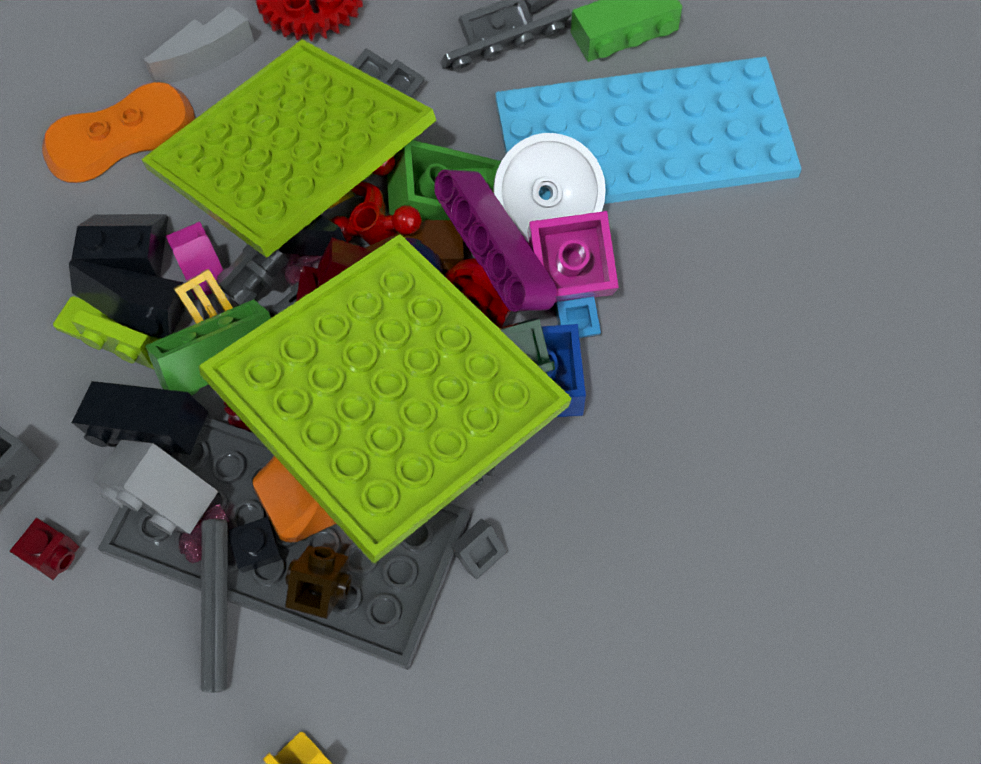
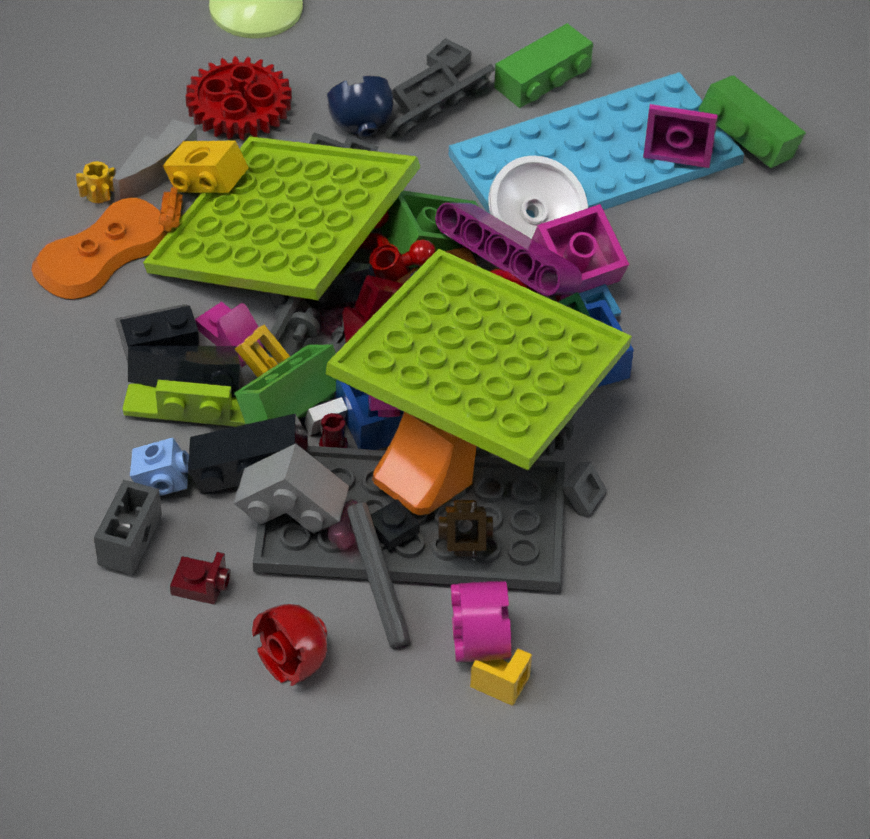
camera: 20 degrees left, 15 degrees down
(49, 408) = (160, 466): none -> light blue brick
(92, 666) = (291, 642): none -> red cylinder
(131, 58) = (96, 182): none -> yellow gear
(191, 105) = (170, 209): none -> orange axle
(238, 66) = (205, 166): none -> yellow brick
(294, 702) = (481, 621): none -> dark pink brick
(420, 30) = (361, 106): none -> dark blue cylinder
(733, 137) = (680, 135): none -> dark pink slope
(821, 134) = (752, 121): none -> bright green brick

